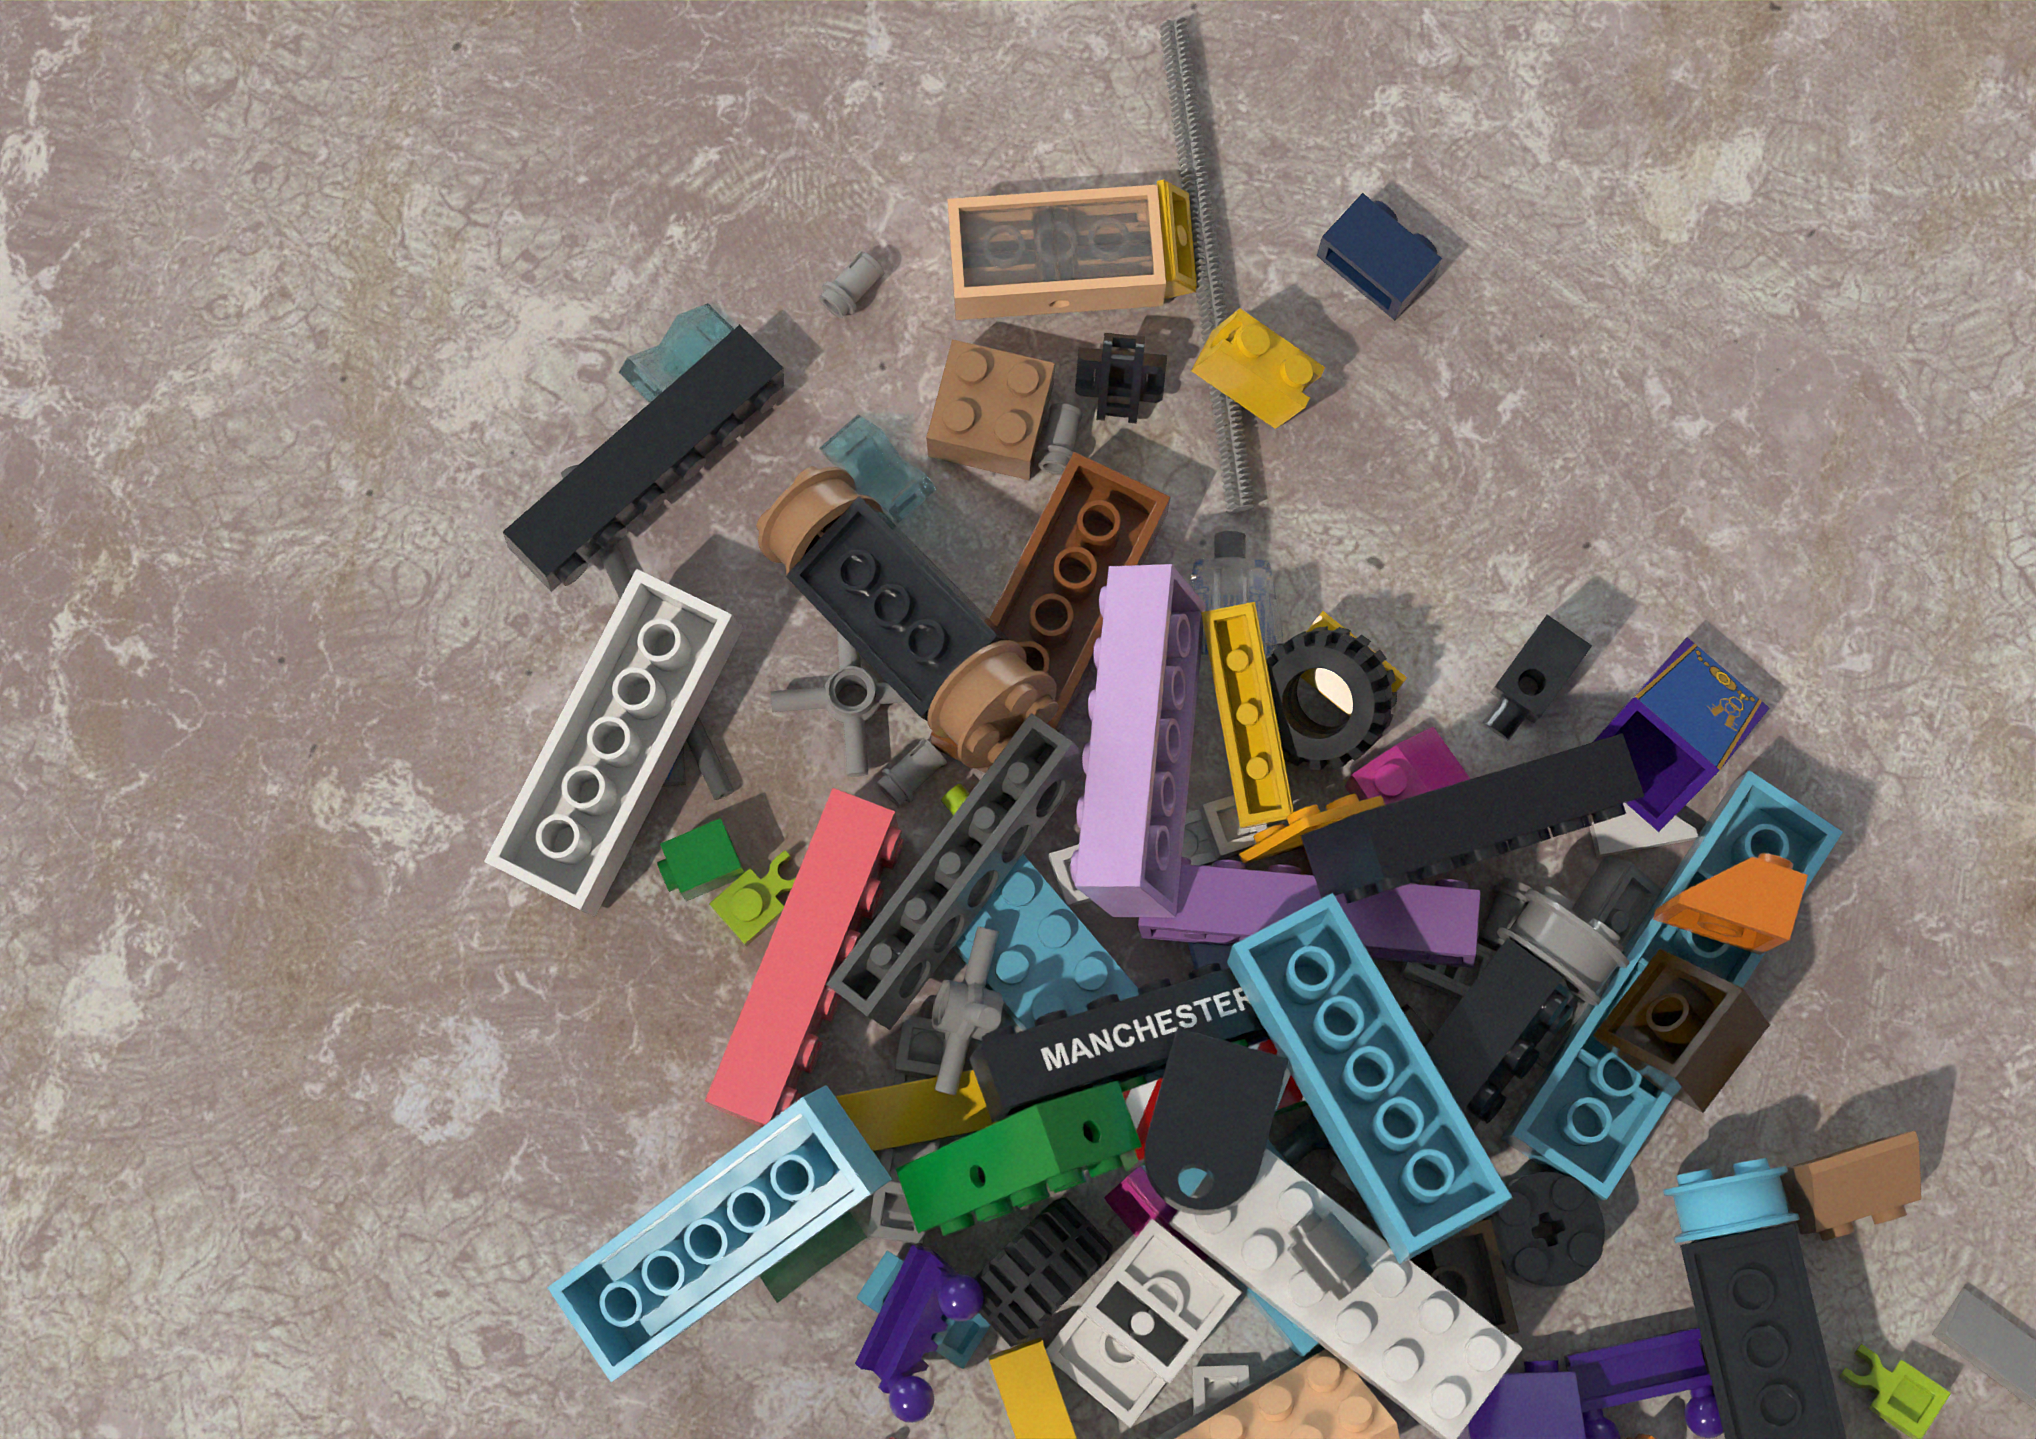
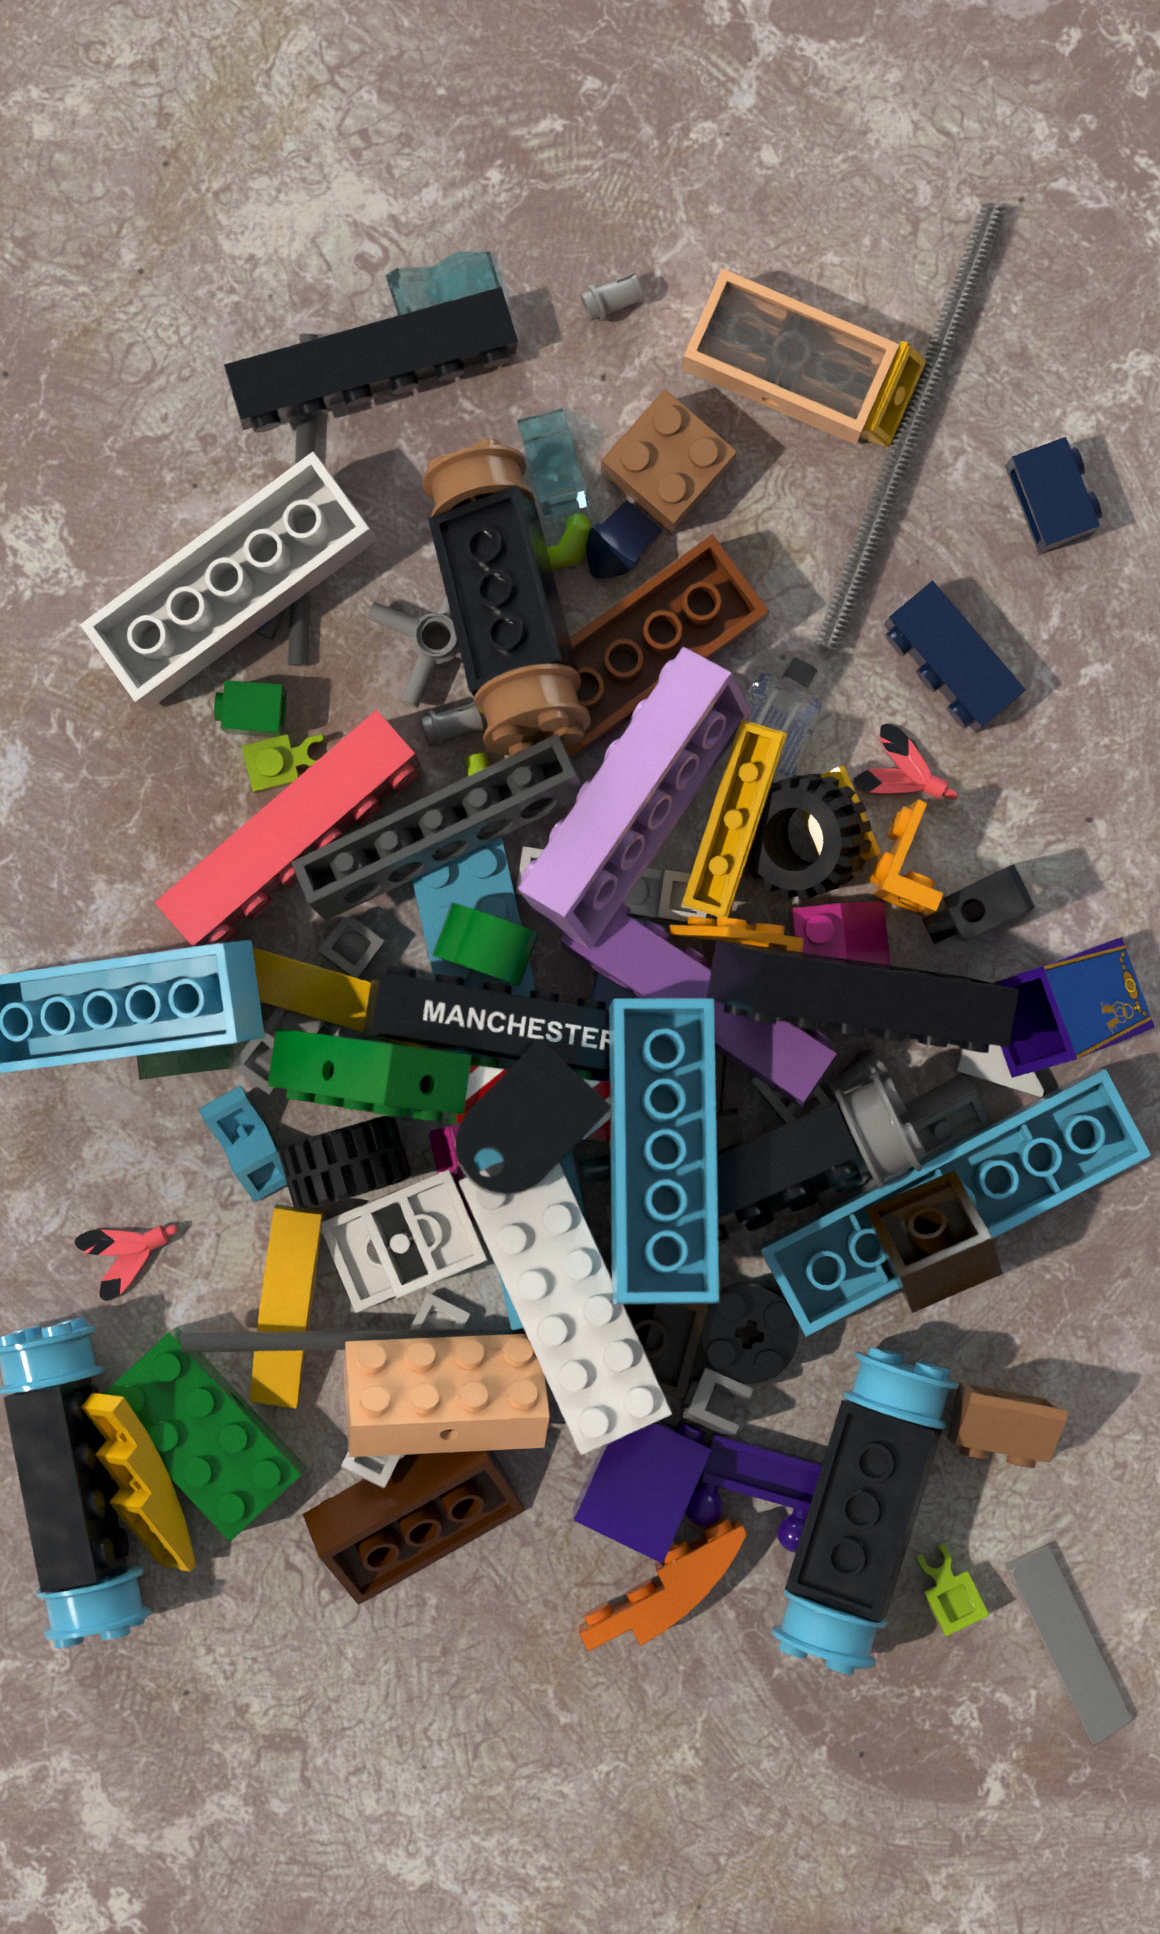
camera: 30 degrees right, 10 degrees up
(906, 1323) = (242, 1139): dark purple gear -> none
(939, 533) = (573, 543): none -> lime arm
(966, 1010) = (392, 936): light grey bar -> none
(984, 511) = (620, 541): none -> dark blue tile
(1059, 438) = (712, 513): light grey pin -> none
(1067, 965) = (485, 944): none -> green piece
(1120, 375) = (788, 486): black piece -> none
(1257, 368) = (899, 540): yellow brick -> none
(1329, 1254) = (560, 1269): dark grey brick -> none
(1370, 456) = (952, 657): none -> dark blue brick
(1390, 588) = (912, 772): none -> coral piece
(1438, 703) = (907, 891): none -> light orange bracket
(1543, 1320) = (710, 1400): none -> light grey window
(1742, 906) = (1035, 1172): orange slope -> none

